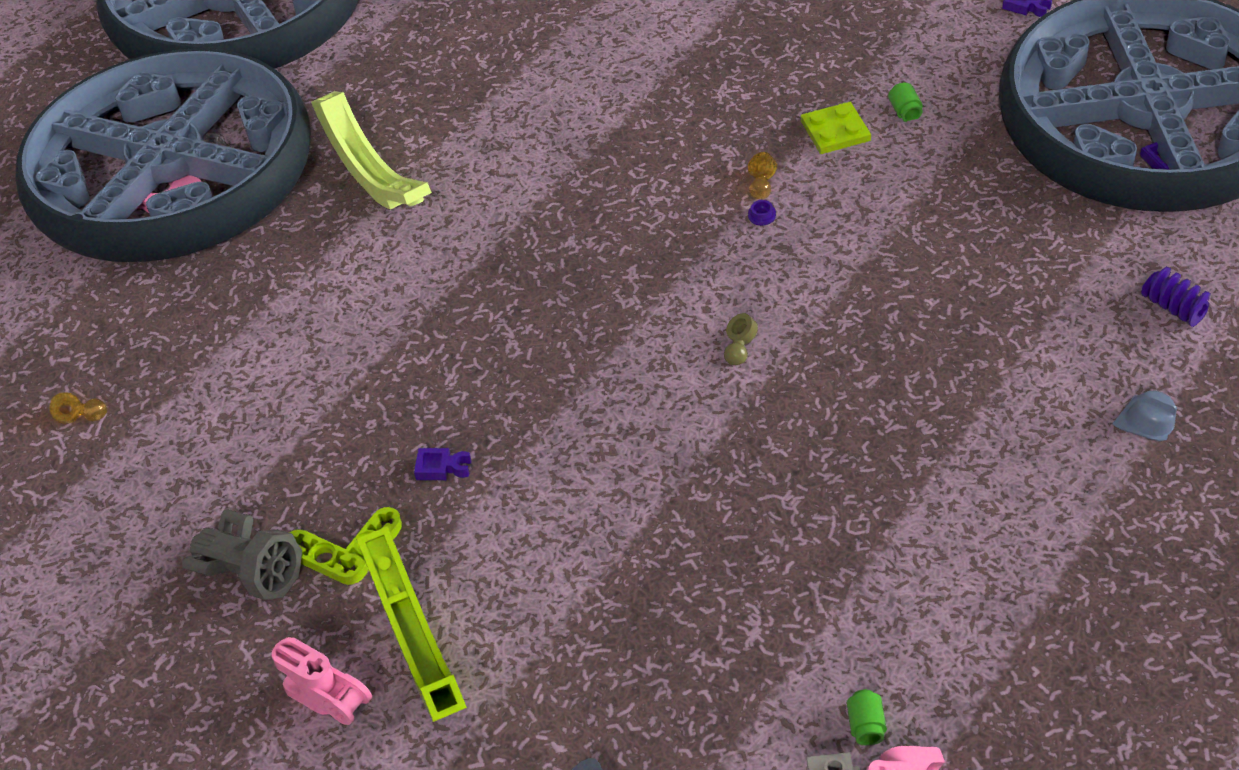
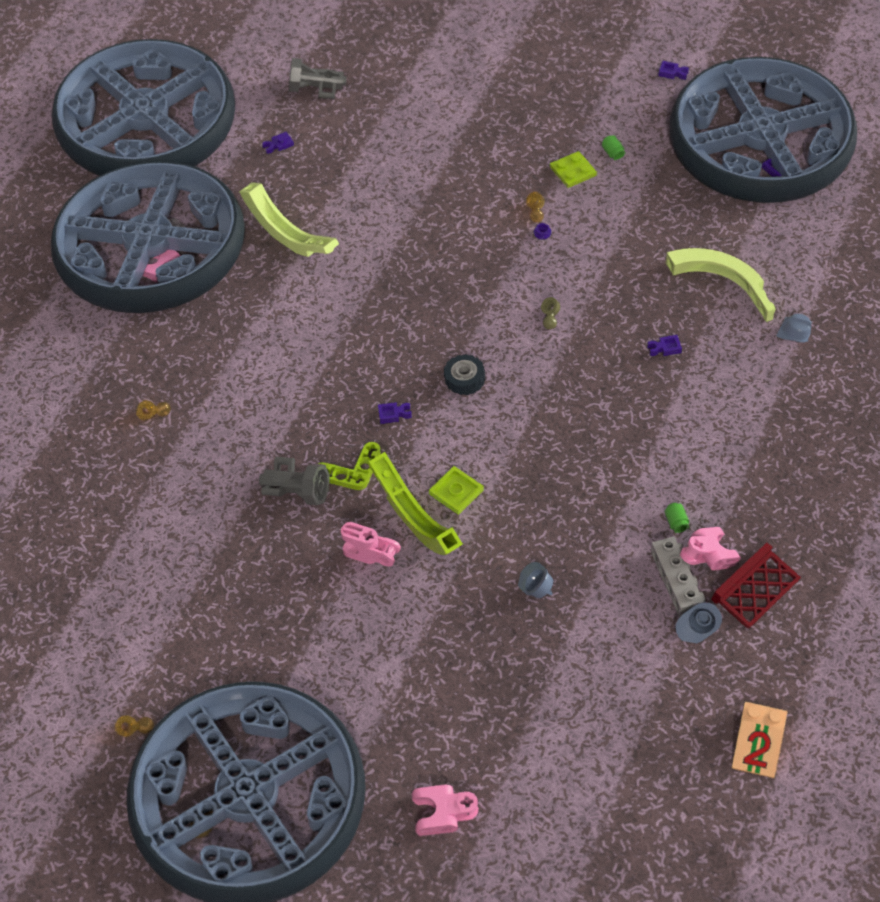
camera: 15 degrees left, 5 degrees up
(408, 46) = (278, 142): none -> dark purple plate
(501, 609) = (456, 490): none -> lime plate
(572, 419) = (464, 374): none -> black wheel
(920, 415) = (667, 345): none -> dark purple plate
(1046, 298) = (725, 265): none -> yellowish green arch
(1177, 296) = (799, 255): dark purple piece -> none

